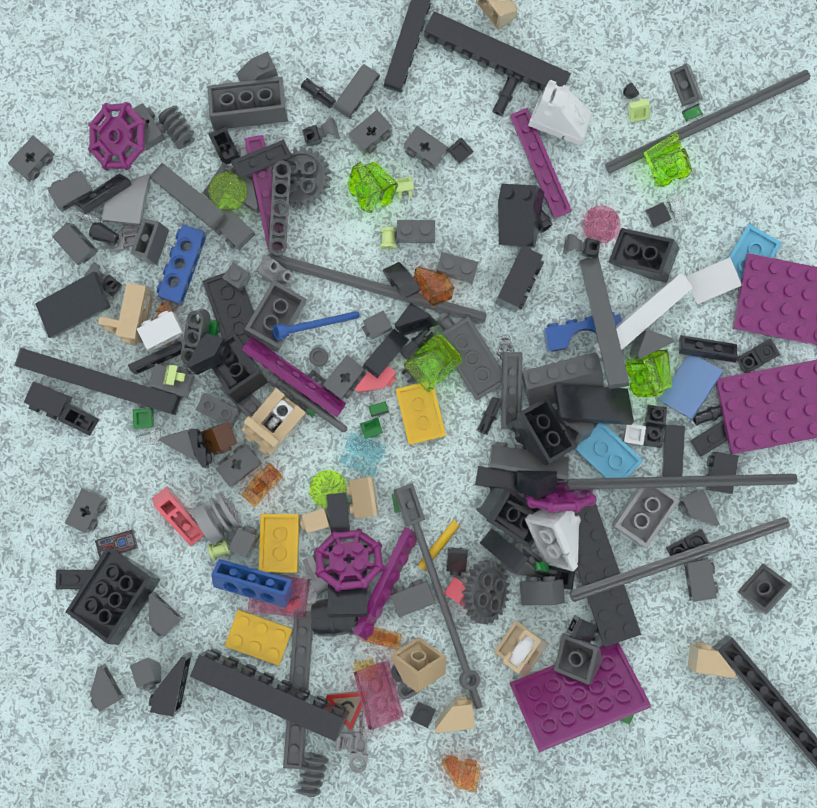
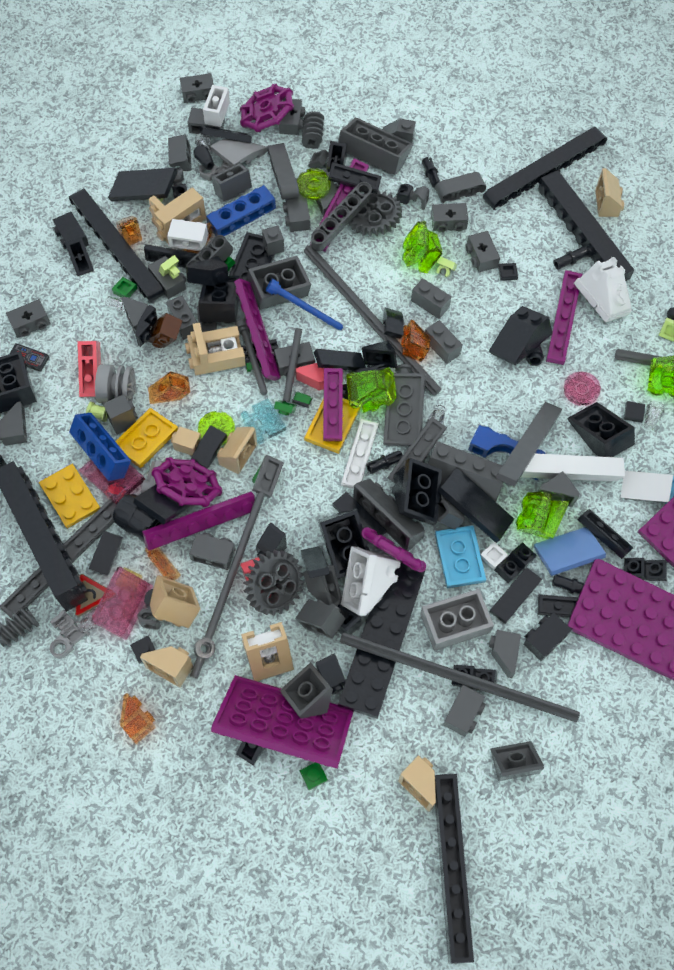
camera: 30 degrees right, 20 degrees down
(74, 175) = (216, 105): none -> white brick
(98, 359) = (129, 229): none -> clear orange slope
(206, 155) = (318, 159): none -> dark grey tile
(234, 475) = (160, 363): dark grey brick -> none
(272, 270) = (302, 250): light grey hips -> none
(318, 357) = (286, 335): dark grey tile -> none
(330, 663) = (106, 552): none -> black slope
(350, 388) = (292, 365): none -> dark grey bar
(376, 325) = (349, 340): dark grey brick -> none
(388, 238) = (406, 291): yellowish green bush -> none
(413, 401) = (333, 404): none -> magenta plate
(440, 543) = (259, 530): yellow piece -> none
(463, 423) = (359, 453): none -> white tile
(520, 279) = (485, 377): black brick -> none
(536, 482) = (383, 522): black slope -> none
(542, 568) = (335, 599): green piece -> none
(588, 247) = (559, 396): leg -> none
(681, 481) = (509, 613): dark grey axle -> none

